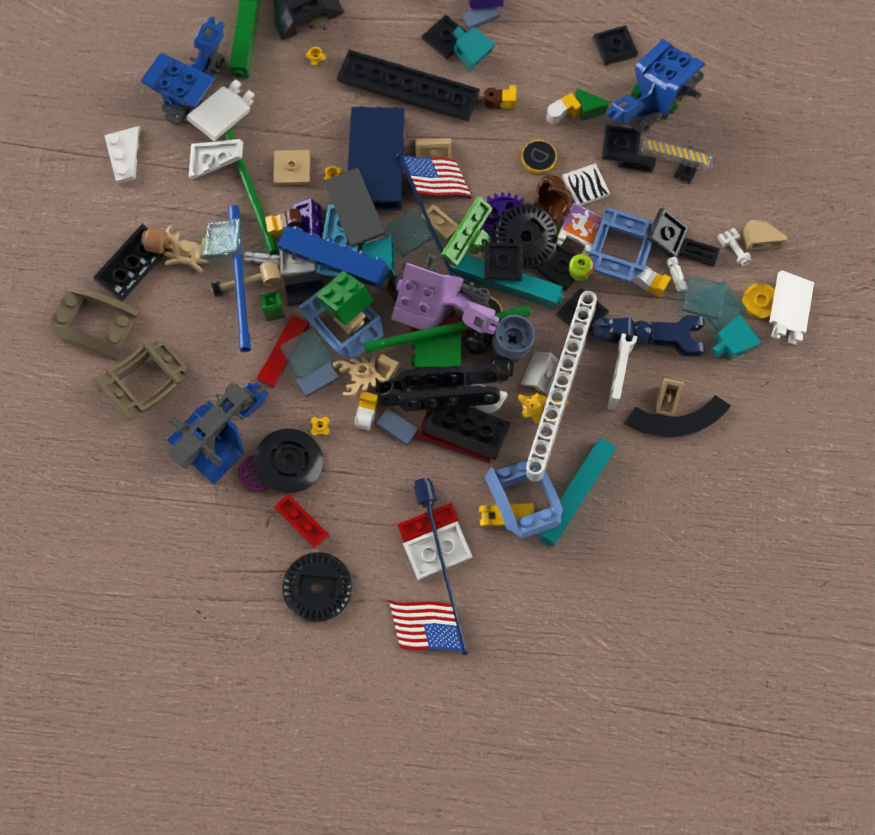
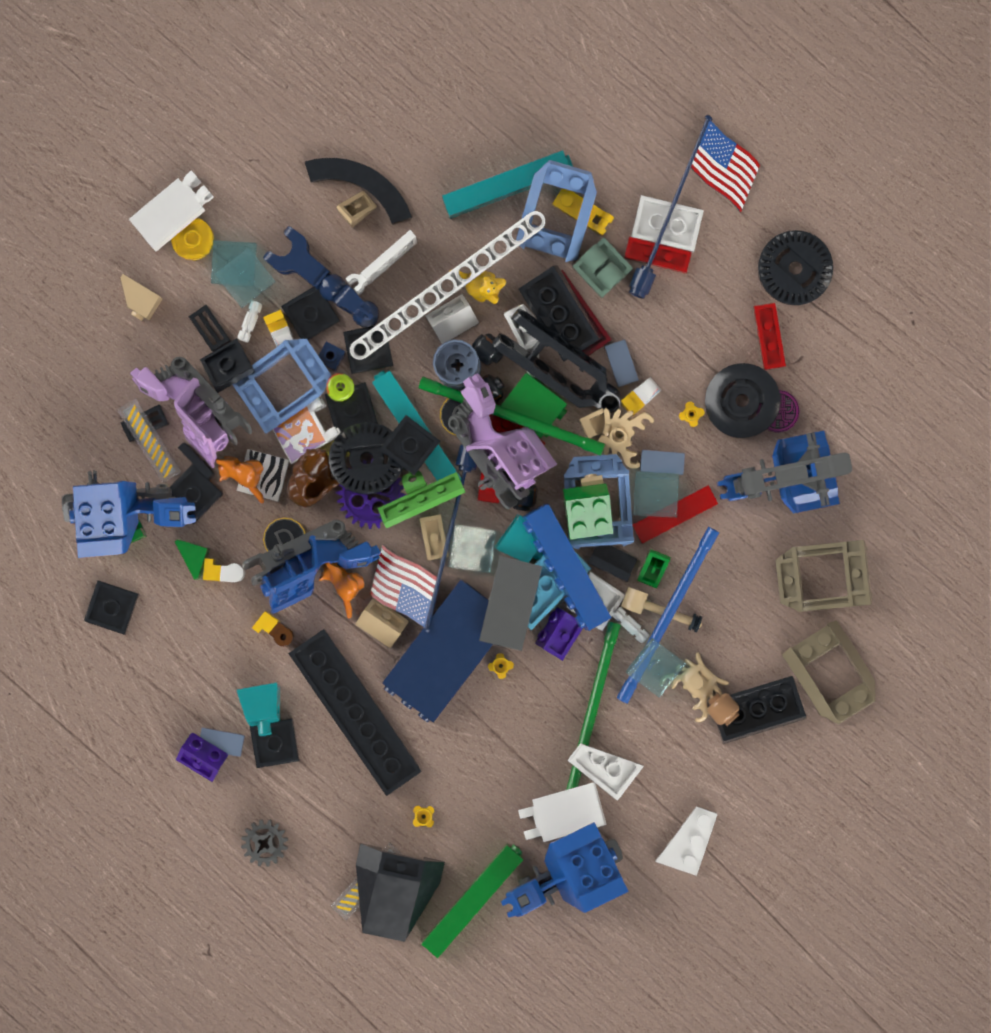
camera: 140 degrees left, 15 degrees up
(277, 224) = (586, 643): leg -> none
(292, 167) = (534, 704): tan plate -> none
(461, 483) = (602, 267): none -> sand green plate
(479, 154) = (345, 583): none -> orange animal
(516, 143) = (292, 567): none -> blue piece
(600, 172) = (245, 473): none -> orange animal
(601, 292) = (338, 356): none -> dark blue plate
(641, 305) = (310, 314): none -> black tile
(661, 183) = (203, 411): none -> lavender piece
(730, 239) = (174, 290): white hinge -> none
(735, 339) = (250, 218): teal torso -> none

